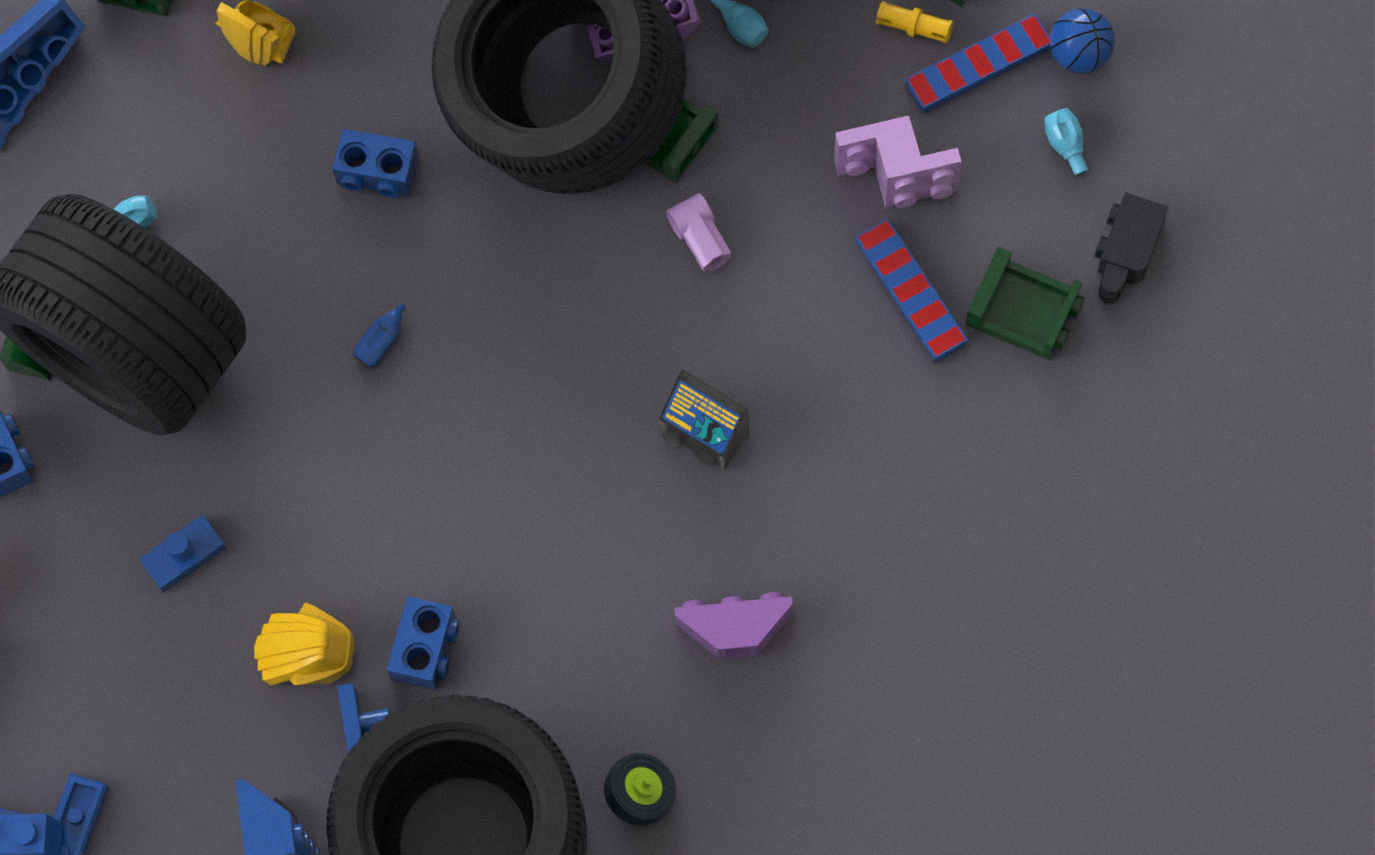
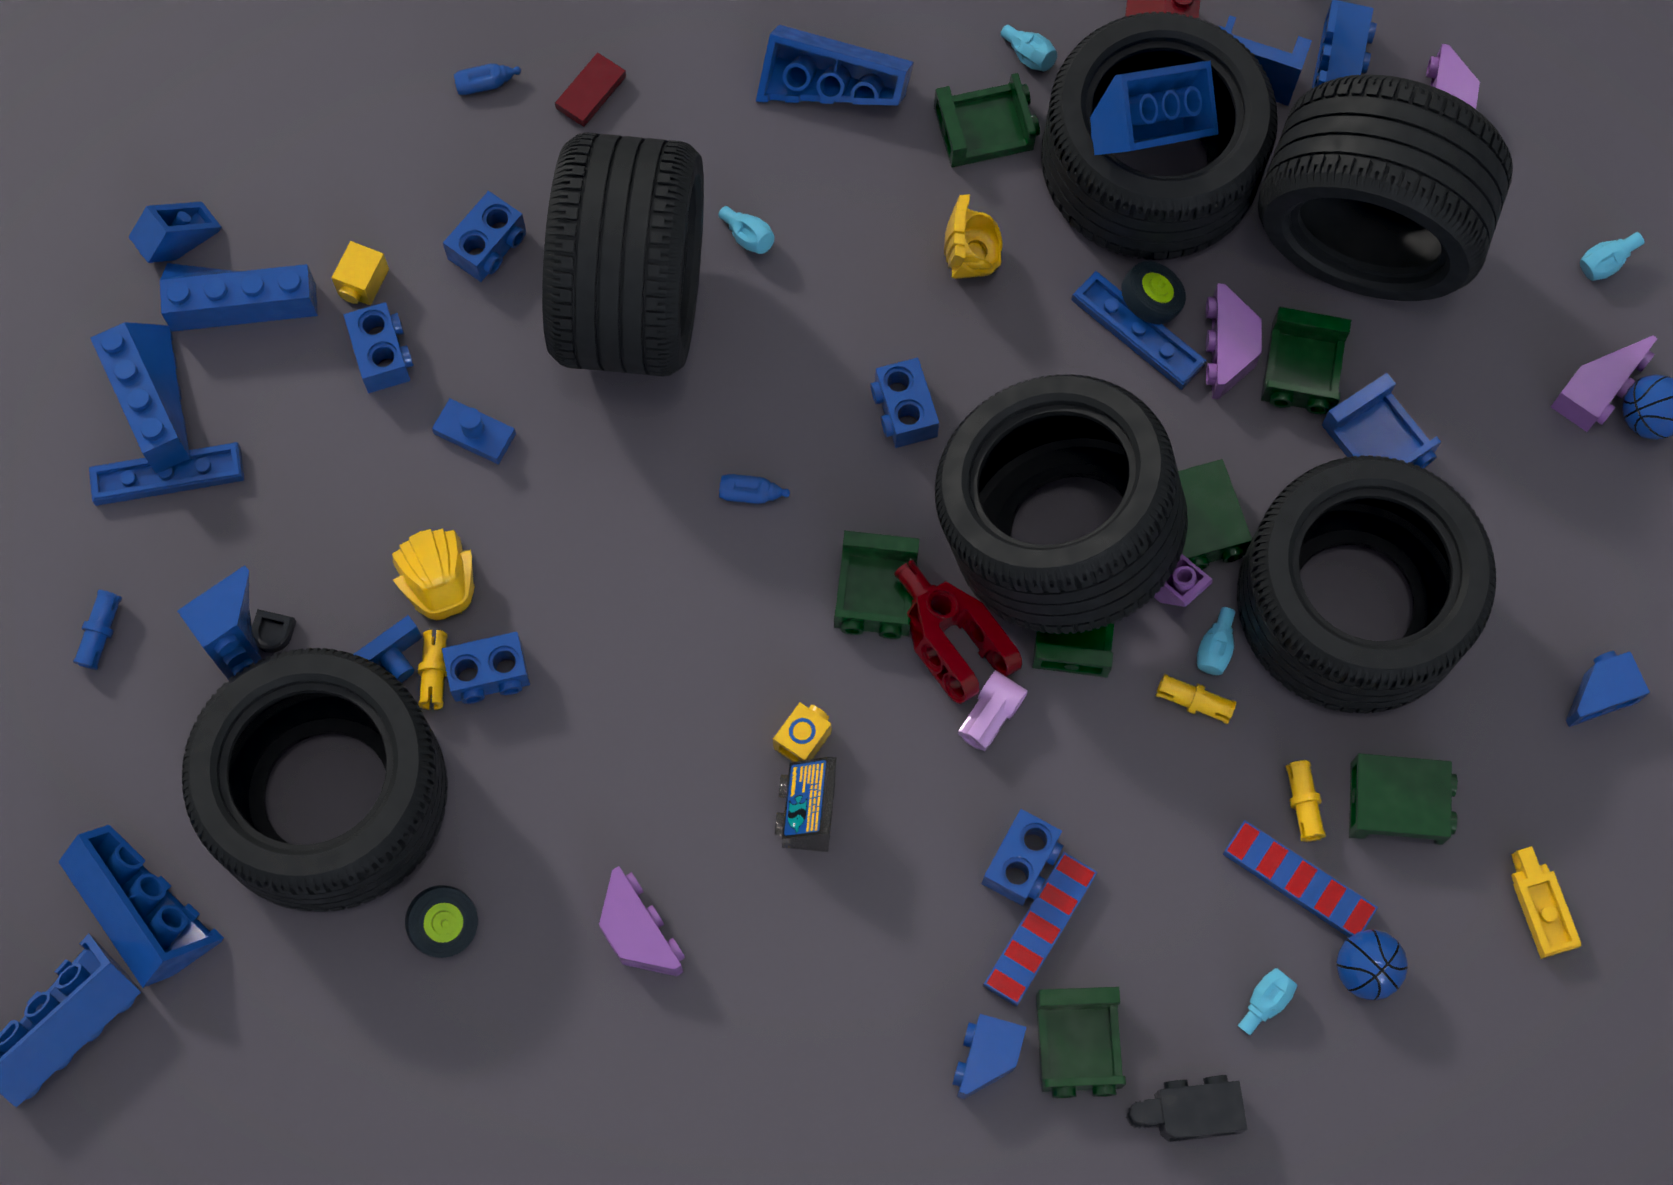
camera: 55 degrees right, 0 degrees up
(47, 608) = (374, 348): none -> blue brick
(394, 691) = (432, 670): none -> yellow pin
(530, 272) = (868, 590): none -> dark green panel
(585, 223) = (934, 646): none -> dark red piece
(635, 399) = (803, 733): none -> yellow brick
(779, 62) = (1196, 698): none -> yellow pin
(835, 275) = (1015, 854): none -> blue brick
(897, 162) = (1151, 852): lavender bracket -> none
(998, 380) = (991, 1055): none -> blue slope

